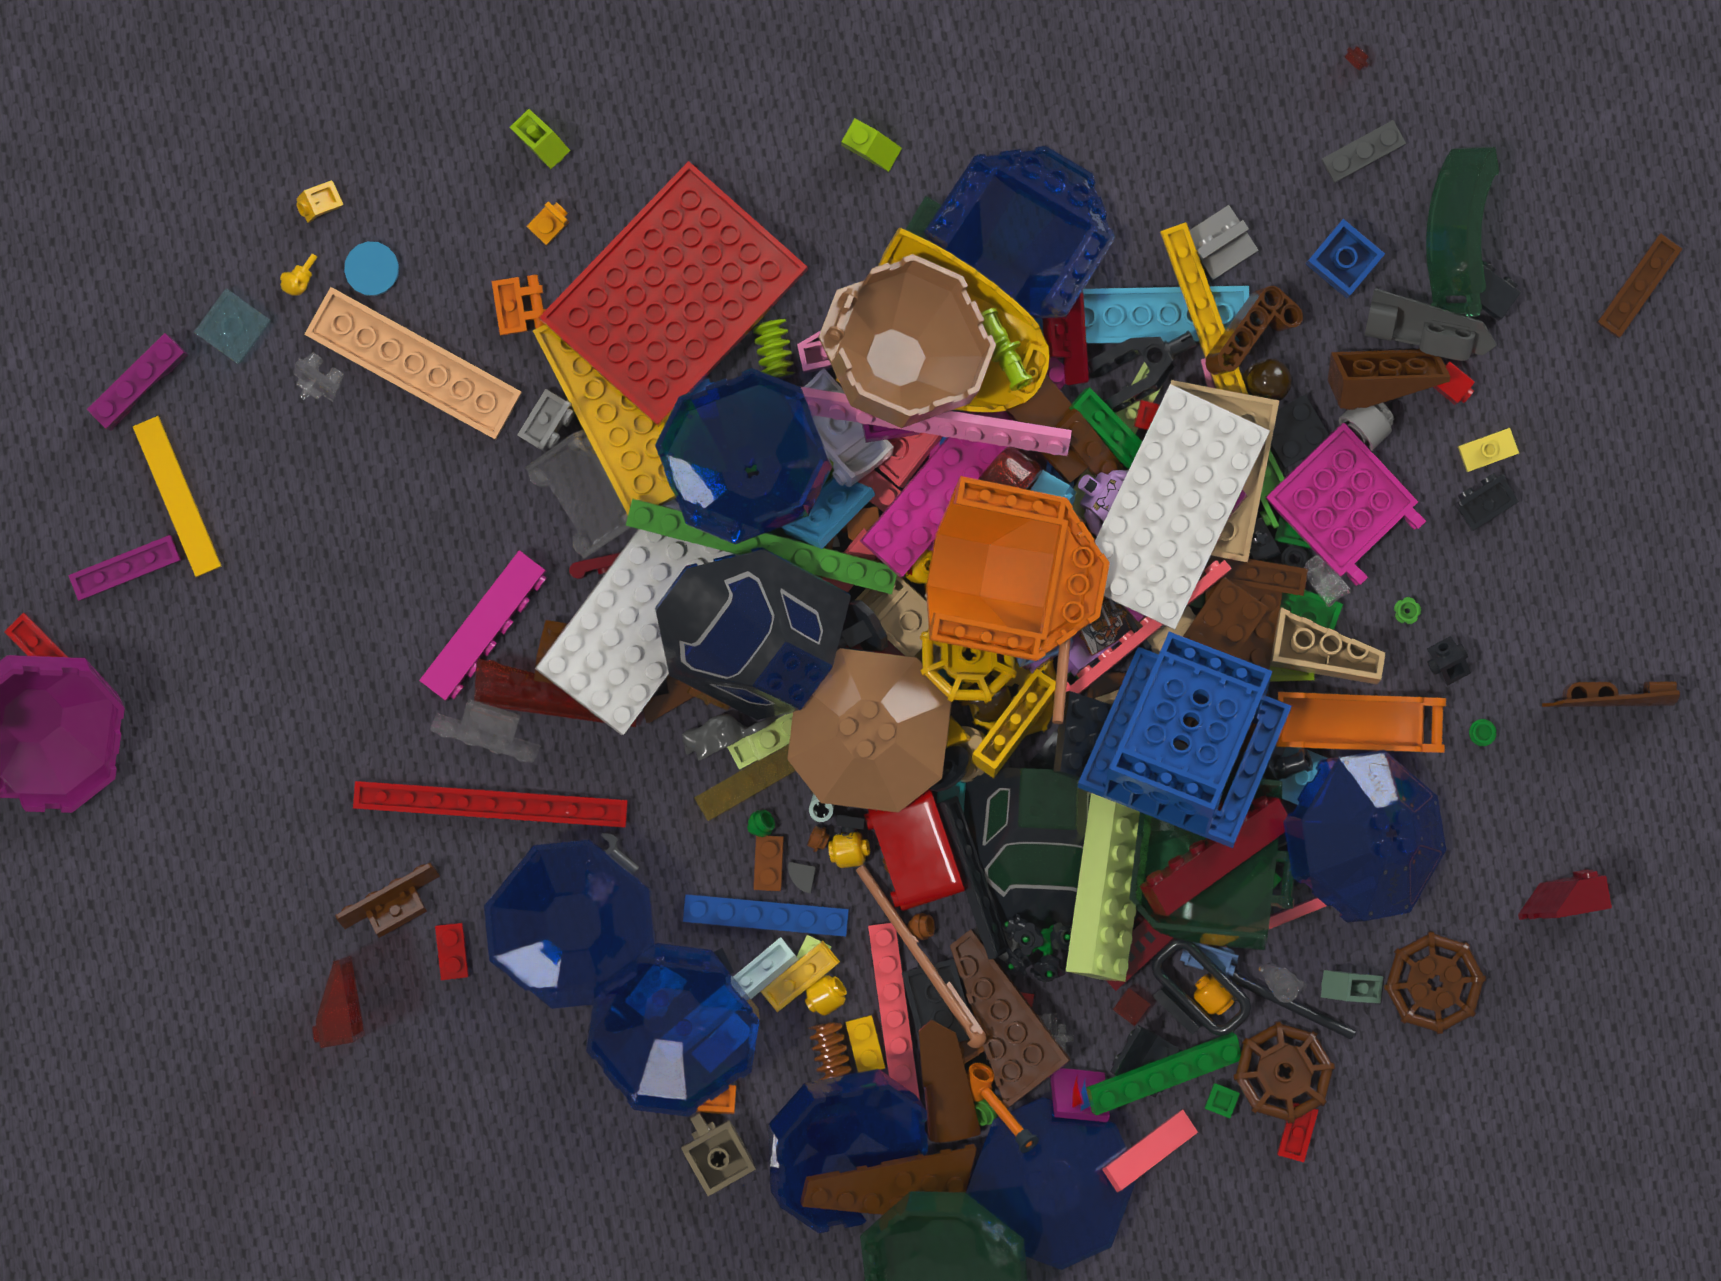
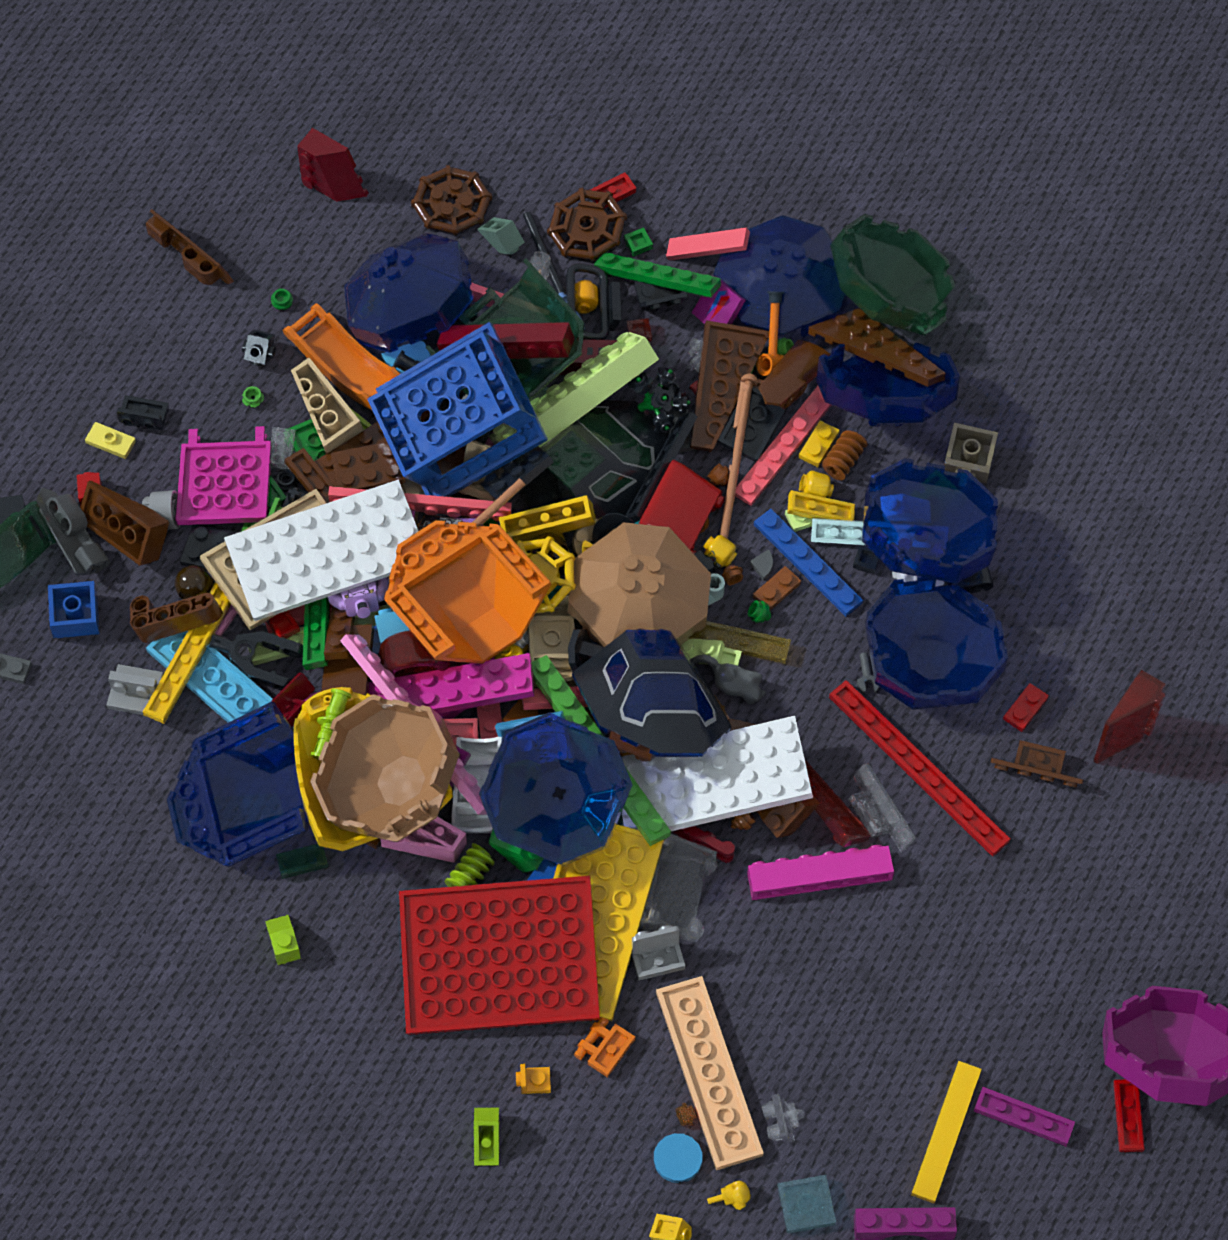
camera: 135 degrees left, 25 degrees down
(398, 309) = (685, 1114): none -> clear orange plate

